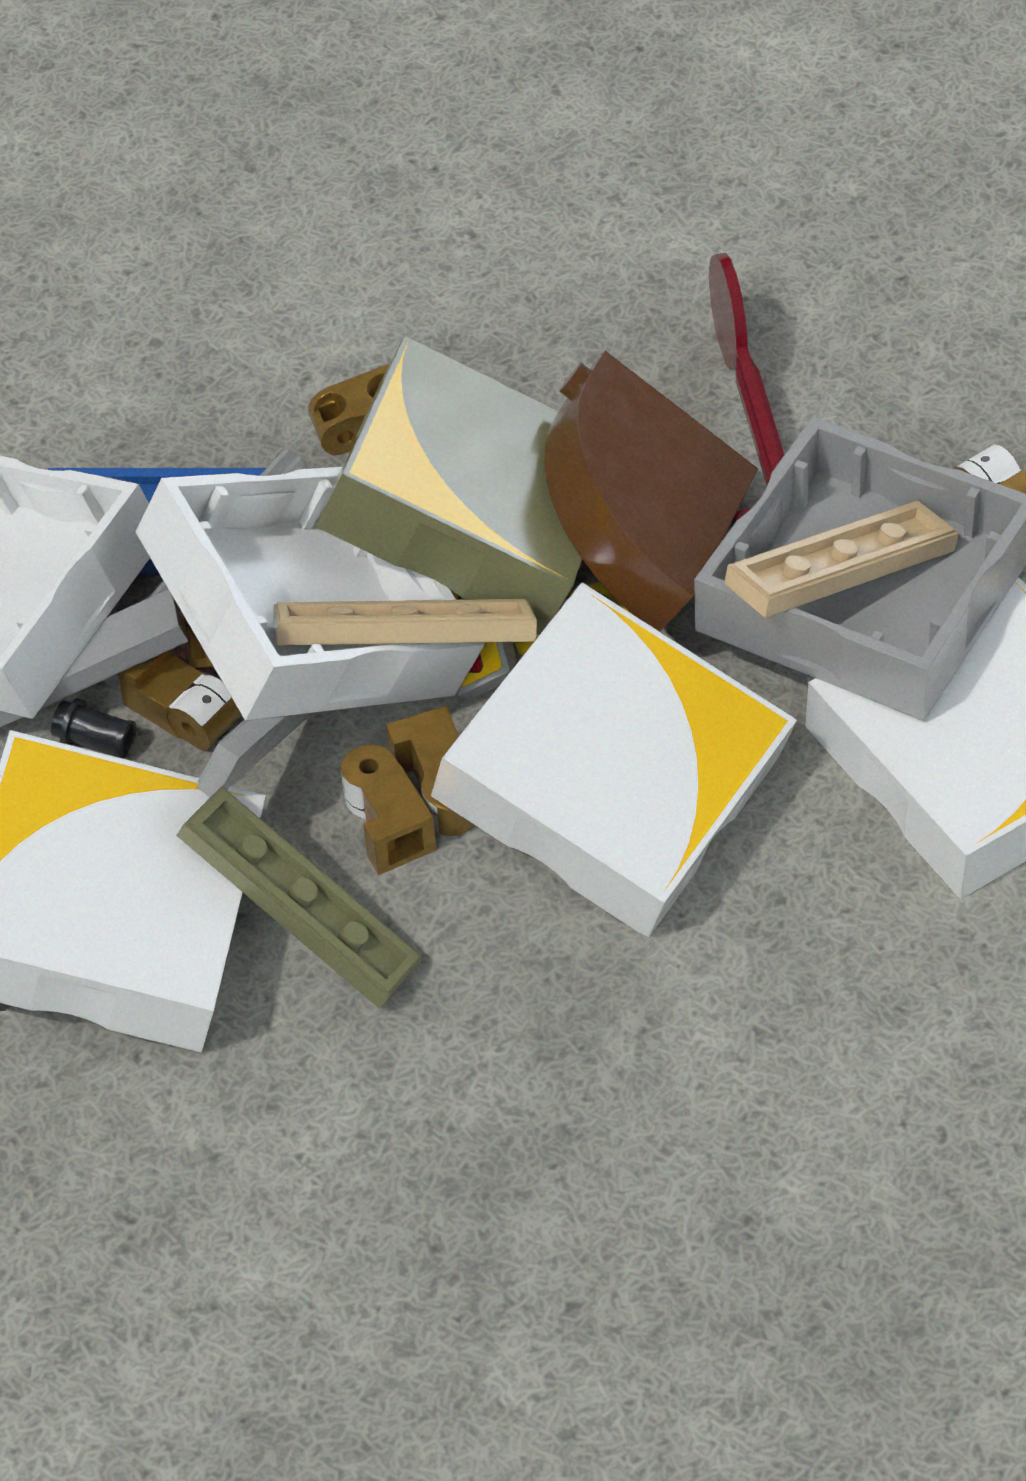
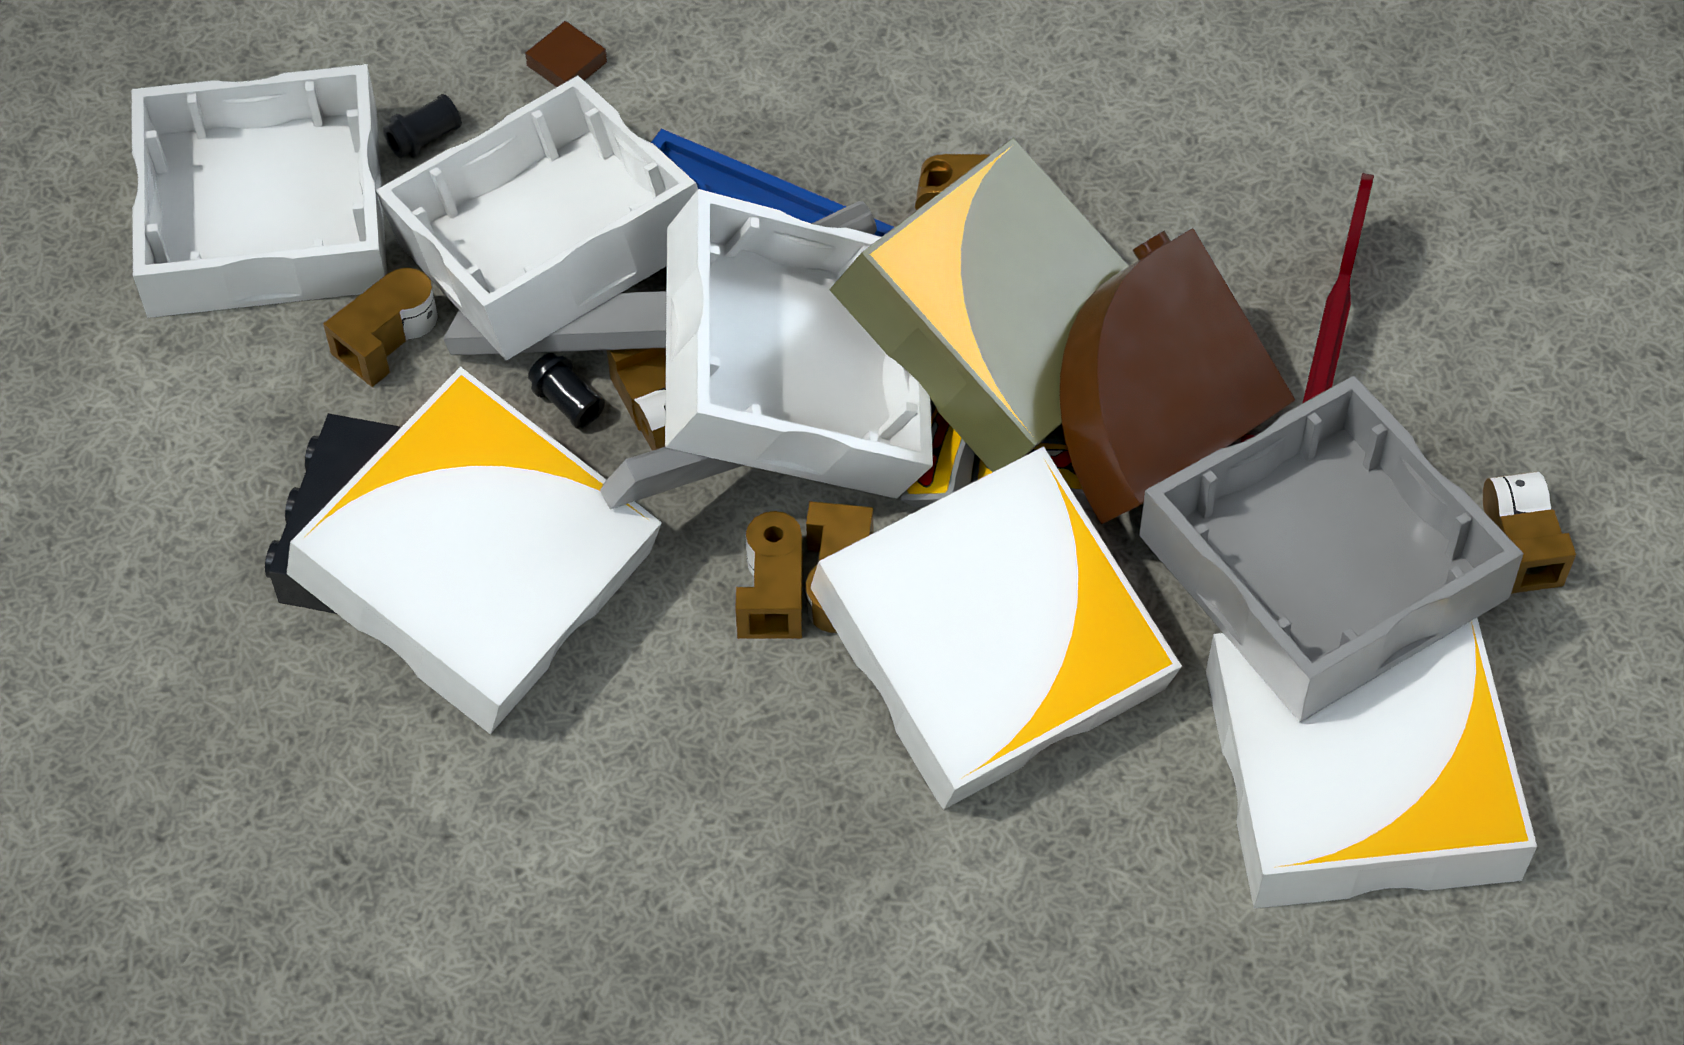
camera: 25 degrees right, 5 degrees up
(299, 896) = (639, 632): olive tile -> none
(404, 622) = (860, 415): tan tile -> none
(840, 558) = (1300, 529): tan tile -> none

